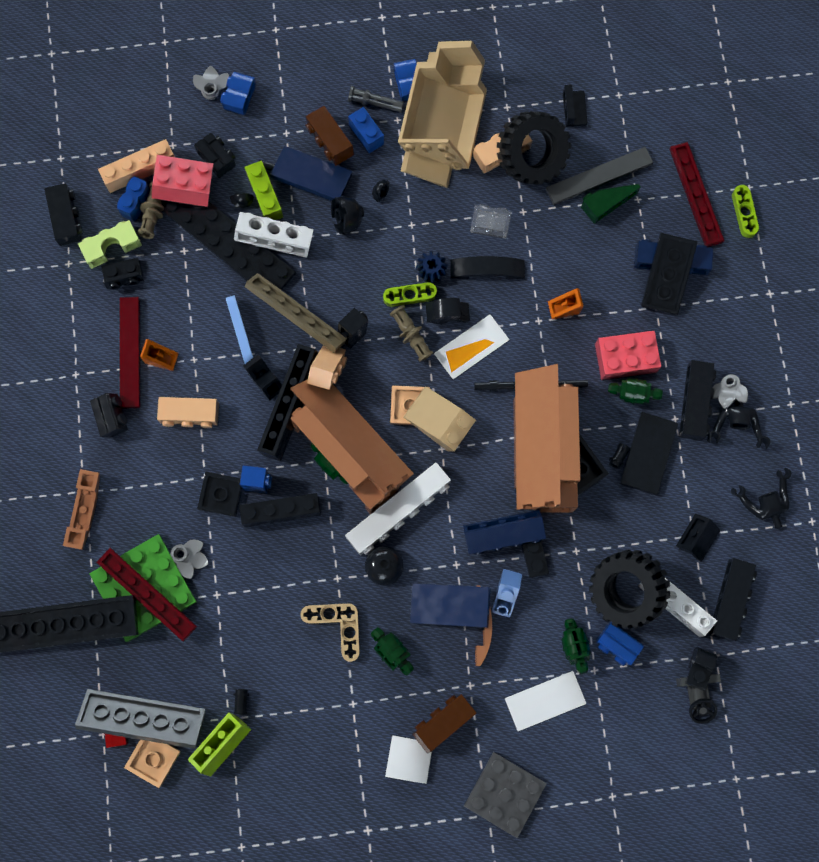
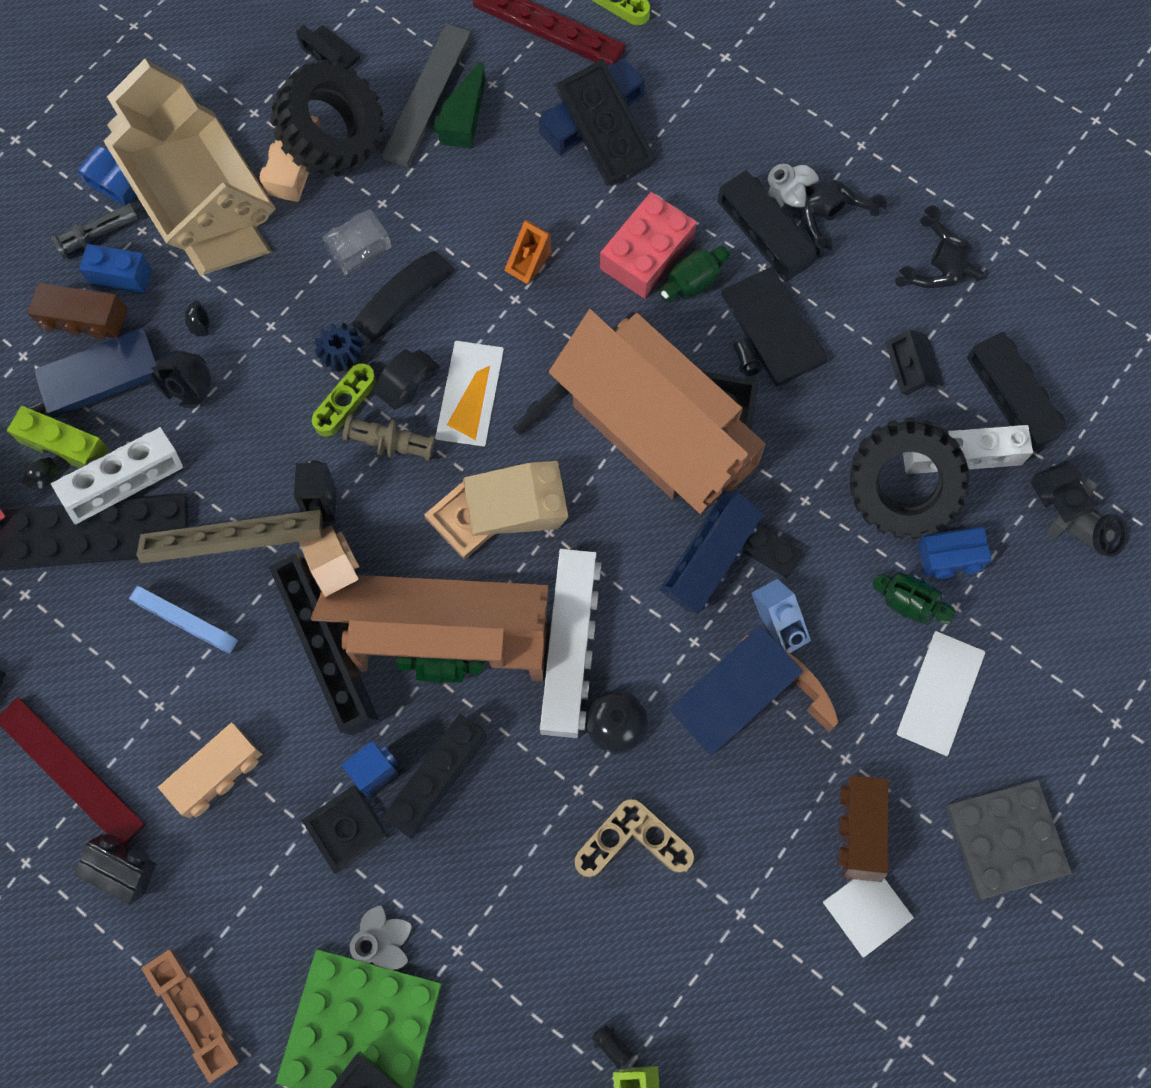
camera: 40 degrees left, 5 degrees down
(147, 594) = (372, 1035): dark red tile -> none
(158, 355) = (110, 741): orange slope -> none
(263, 377) = (264, 646): black brick -> none
(392, 651) = (725, 807): dark green piece -> none

